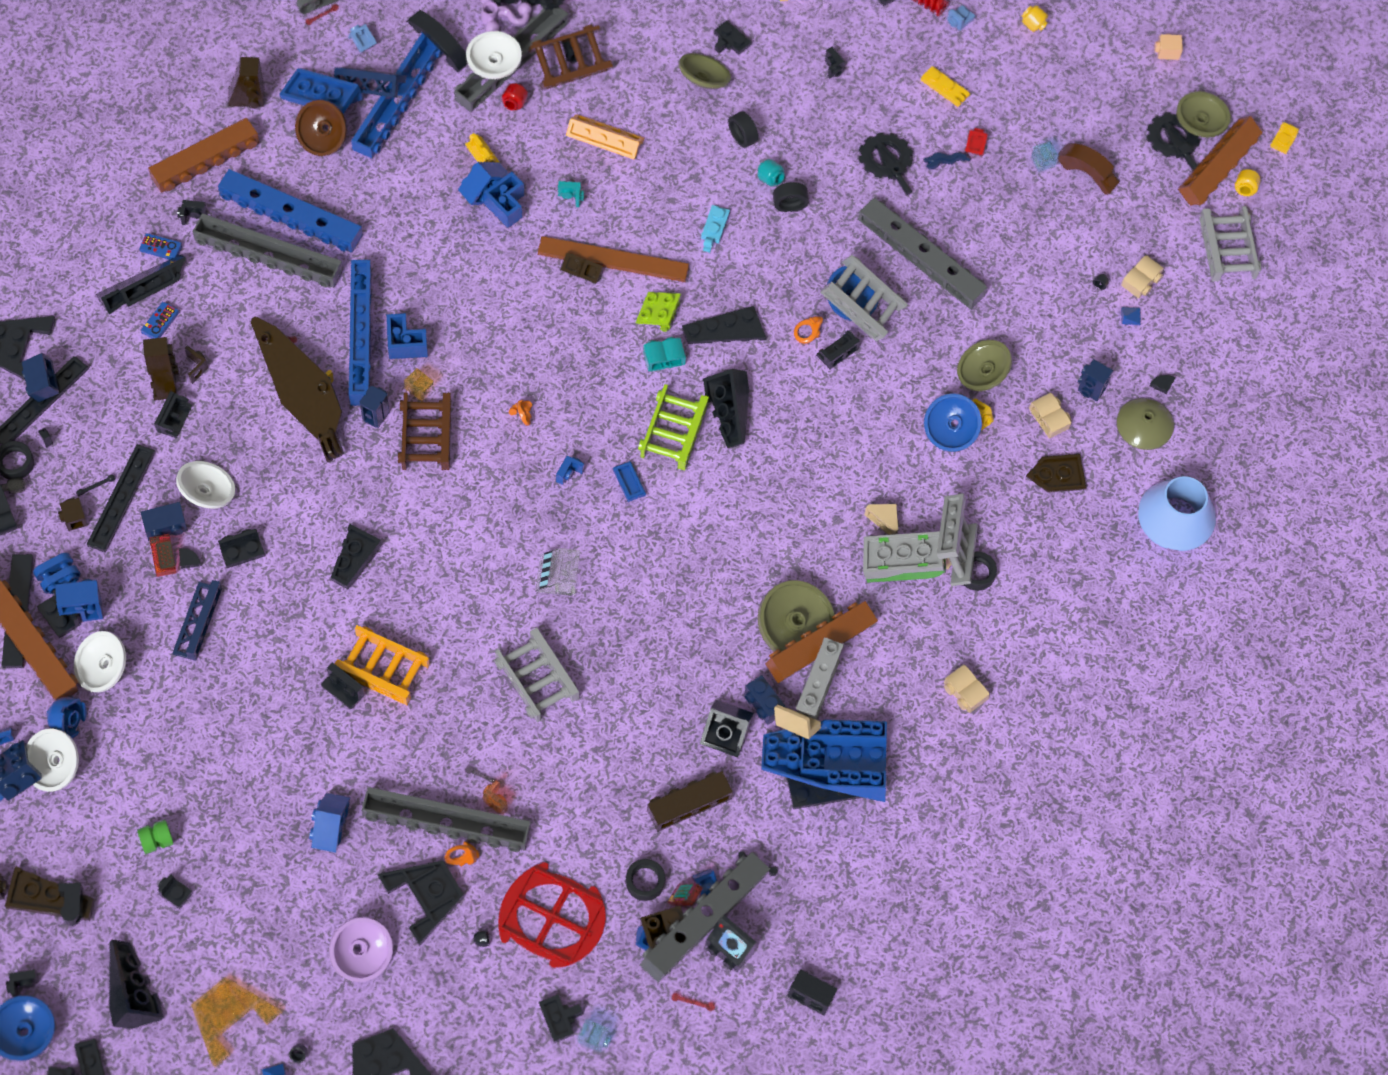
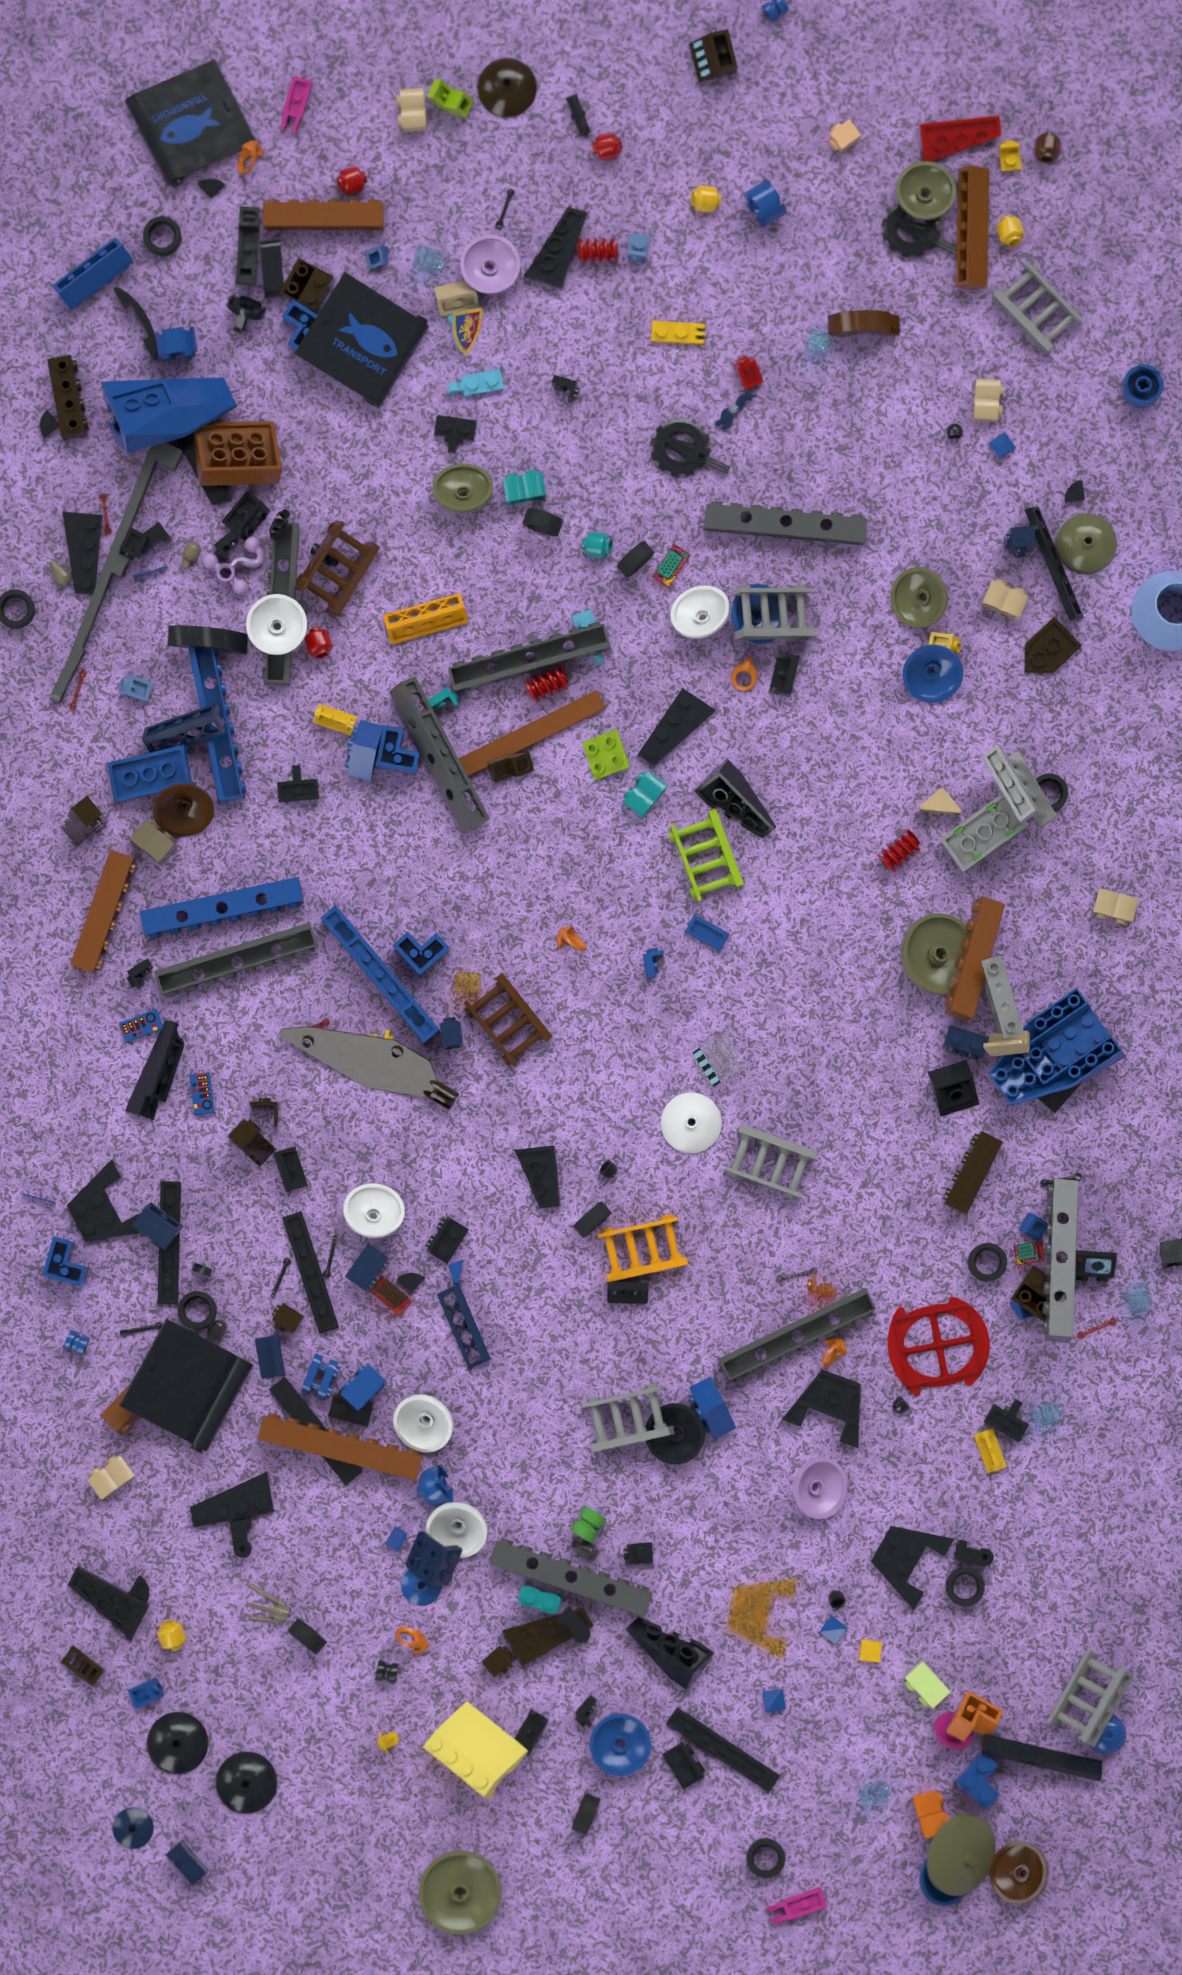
camera: 35 degrees left, 20 degrees up
(36, 533) = (270, 1356): none -> dark blue panel
(64, 863) = (545, 1601): none -> teal brick
(112, 880) = (587, 1583): none -> dark grey piece
(132, 507) = (327, 1273): none -> black hinge
(136, 856) = (585, 1549): none -> clear smoke cylinder
(228, 574) = (455, 1269): none -> blue slope
(256, 797) = (641, 1433): none -> light grey fence
(279, 809) = (676, 1449): none -> black dish
(282, 137) = (153, 842): none -> dark tan brick
(362, 612) = (592, 1219): none -> black tyre
(408, 590) = (608, 1169): none -> black hinge
(415, 175) = (297, 787): none -> black hinge
(504, 615) = (686, 1137): none -> white dish
(524, 1031) = (990, 1450): none -> yellow hinge
(535, 222) = (439, 755): none -> dark grey piece
(643, 203) = (513, 664): none -> dark grey piece
(655, 233) = (547, 684): none -> red piece
(747, 1001) = (1138, 1297): none -> clear light blue brick
(751, 102) = (524, 487): none -> teal brick
(772, 21) = (478, 383): none -> medium azure plate
(809, 263) = (698, 604): none -> white dish
(813, 224) = (671, 566): none -> tile
(826, 527) = (899, 851): none -> red piece
(1075, 45) = (765, 203): none -> blue brick
(1108, 417) = (1054, 564): none -> black tile
(1251, 99) = (952, 136): none -> red wing
(1272, 345) = (1153, 386): none -> blue brick
(1317, 150) = (1047, 147): none -> reddish brown head

